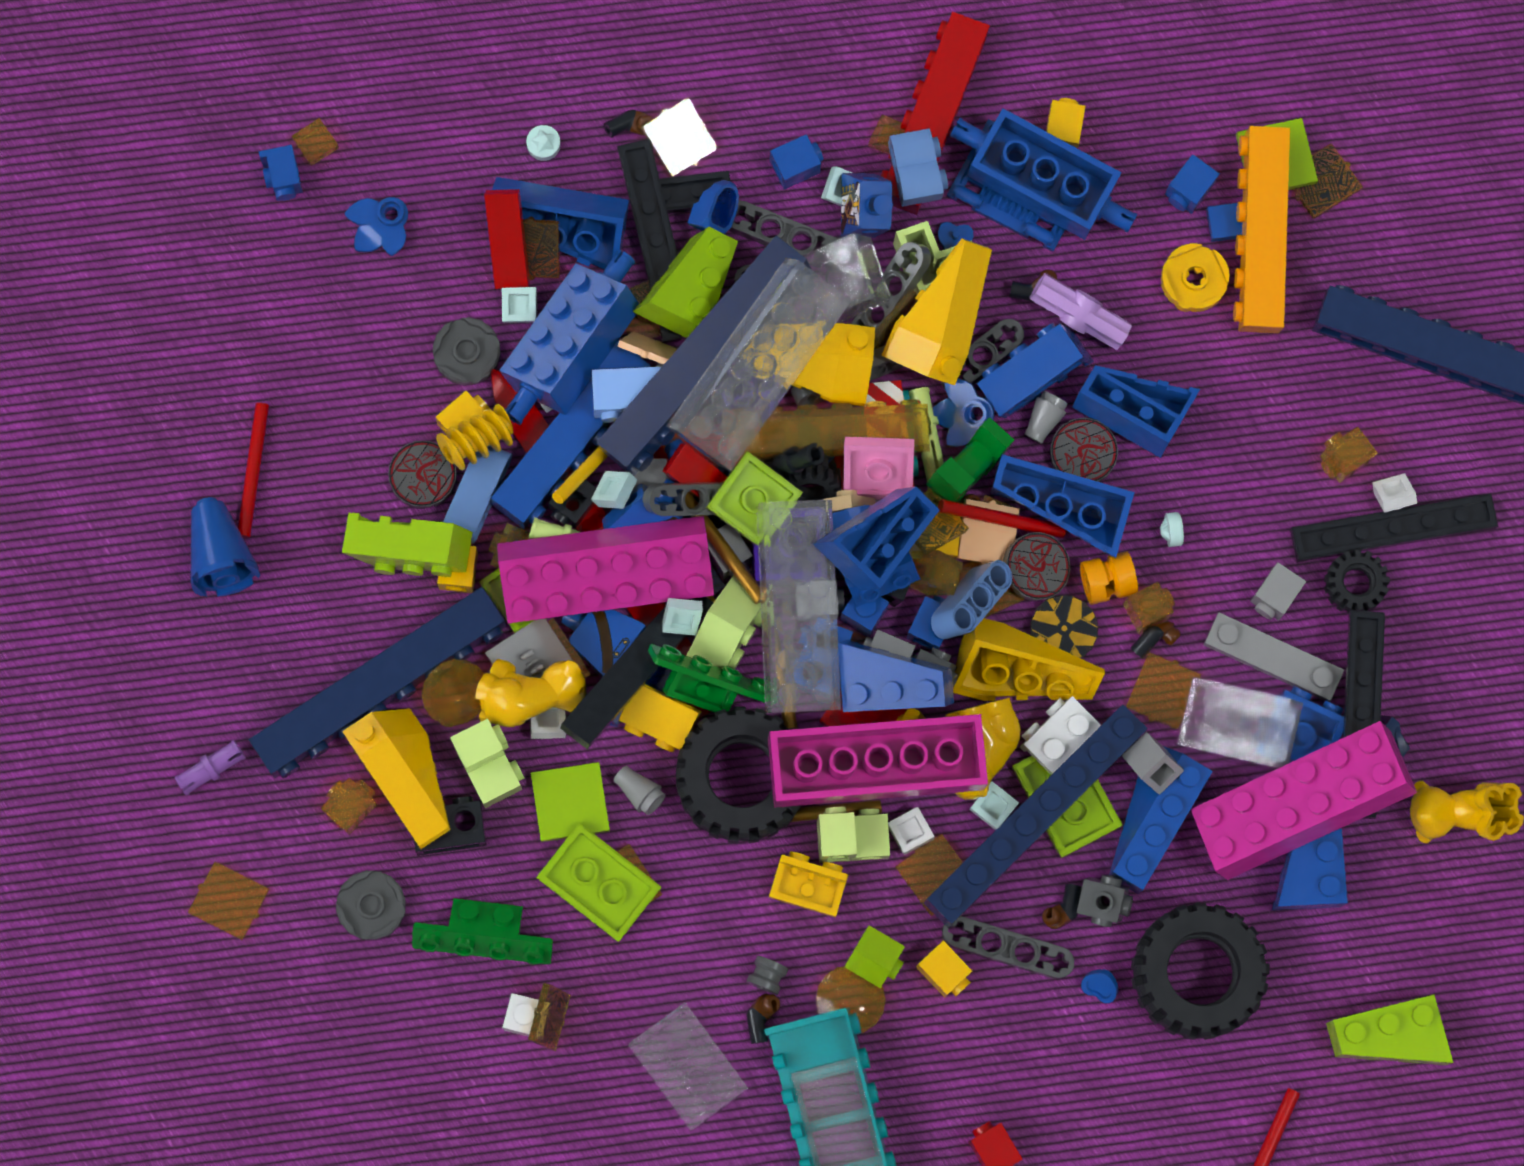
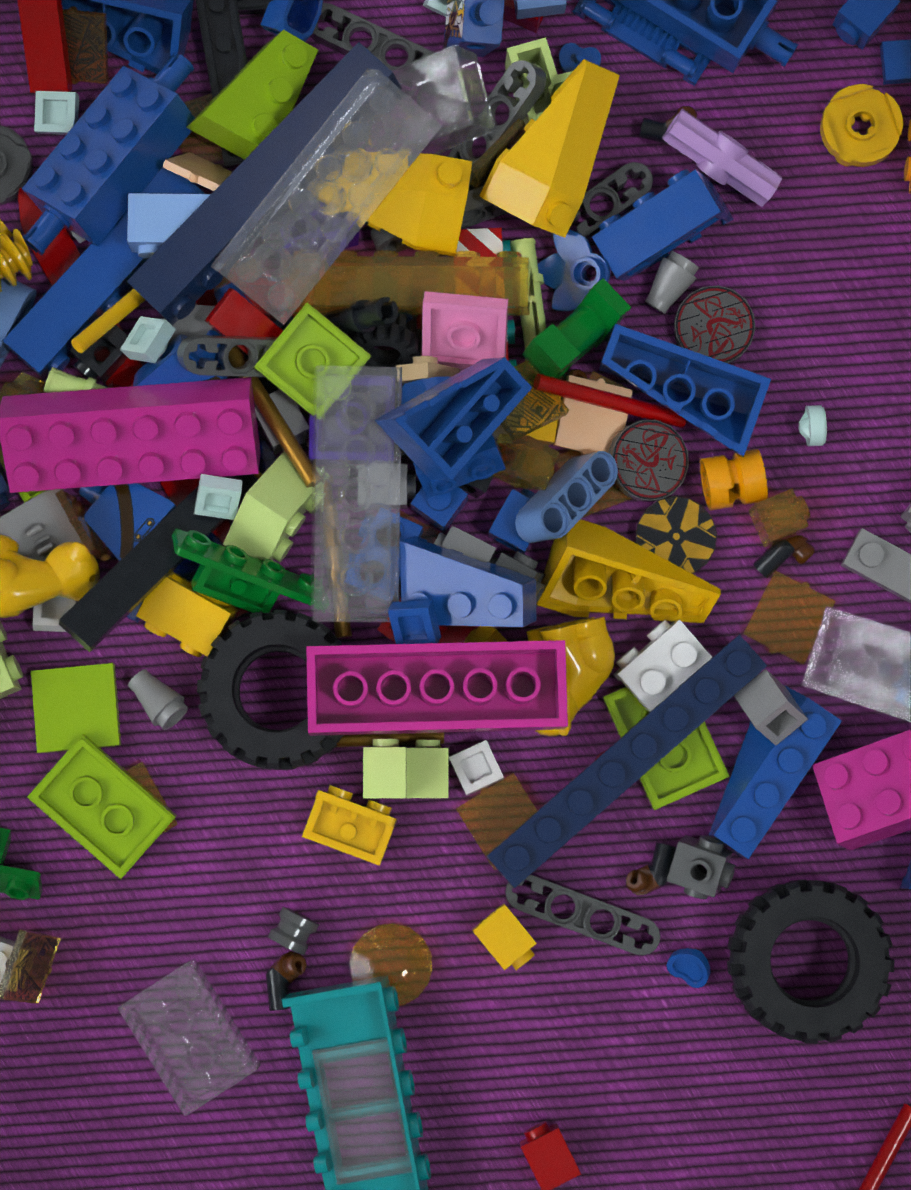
camera: 10 degrees right, 5 degrees up
(855, 707) = (414, 622): none -> blue plate
(876, 957) = (423, 918): lime brick -> none
(995, 806) = (579, 745): light aqua plate -> none
(1135, 407) = (779, 276): blue wedge -> none

